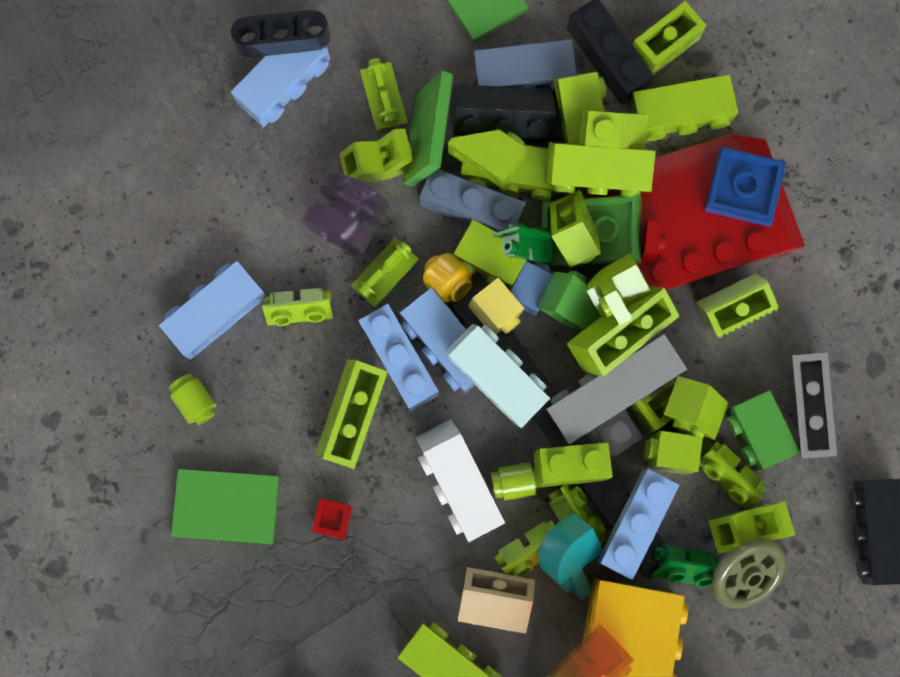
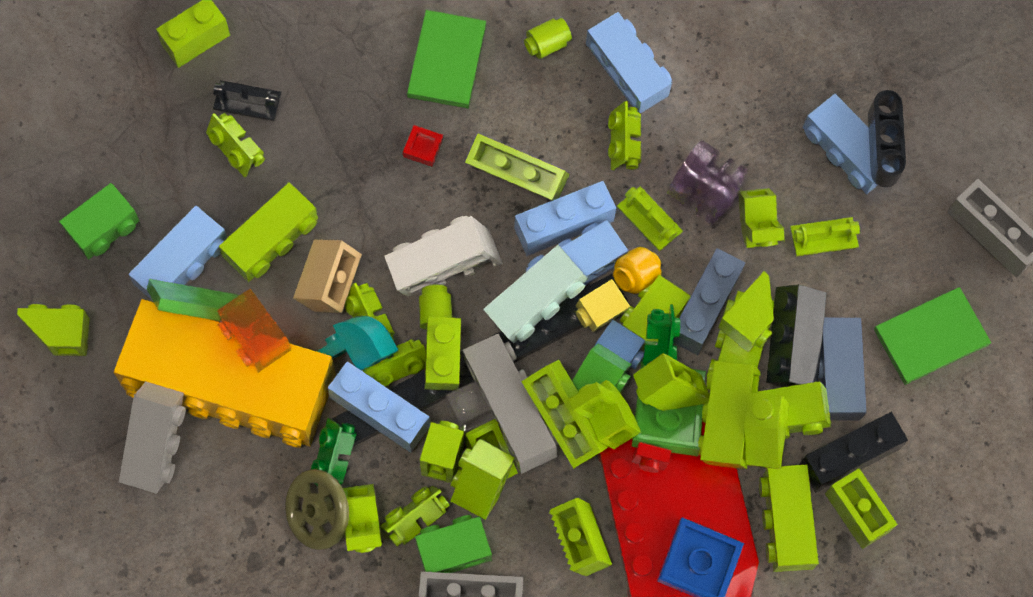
camera: 90 degrees right, 10 degrees down
(428, 128) = (784, 264): bright green tile -> none

